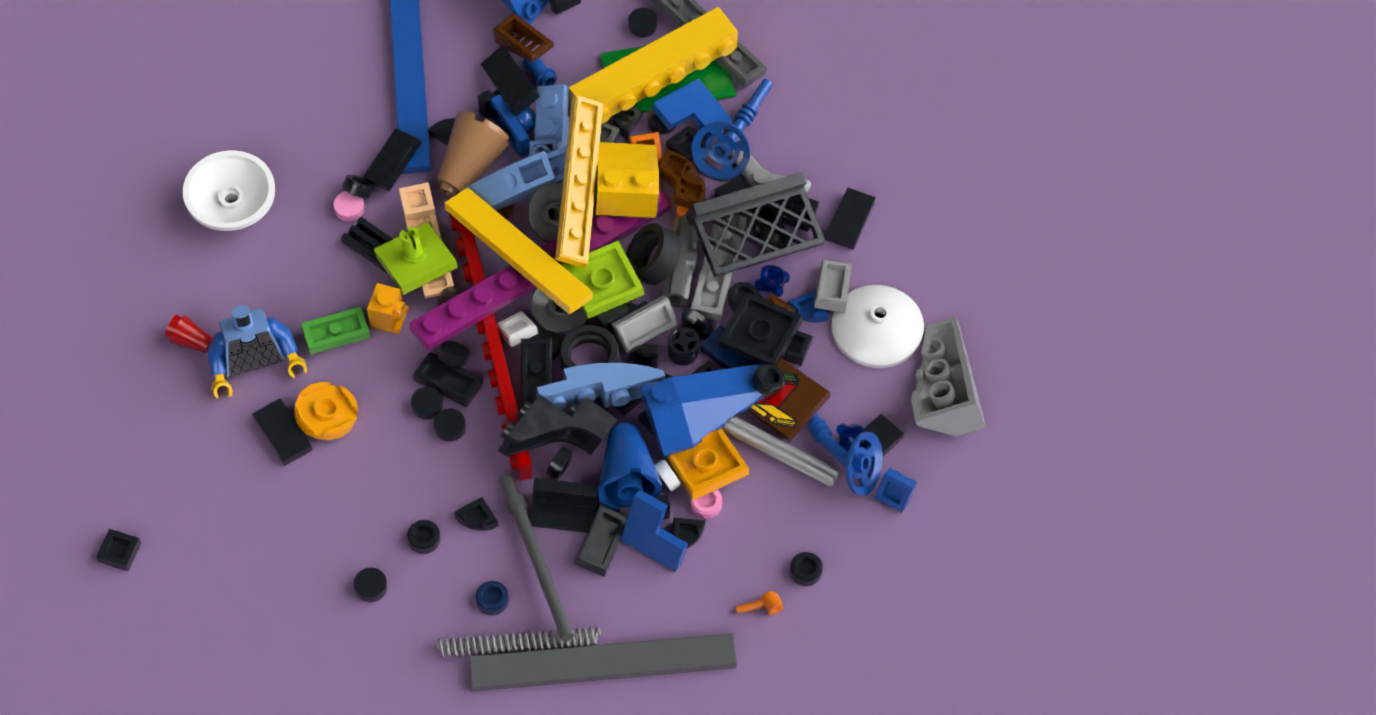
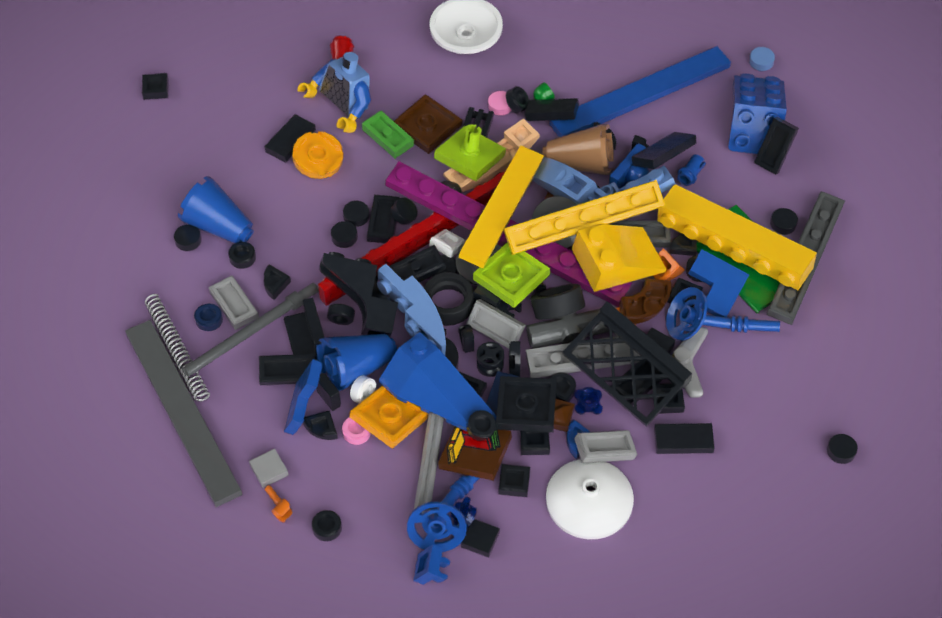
camera: 70 degrees right, 5 degrees down
(336, 285) = (428, 123): none -> reddish brown tile
(361, 159) = (543, 92): none -> green hinge
(361, 539) = (215, 212): none -> blue cone
(387, 309) = (420, 154): light orange brick -> none
(484, 566) = (233, 302): none -> light grey tile
(515, 25) = (710, 144): reddish brown slope -> none
(715, 600) = (268, 468): none -> light grey tile
(833, 380) = (514, 480): none -> black tile
(920, 97) = (842, 448): none -> black tile
(945, 387) = (549, 573): light grey wedge -> none

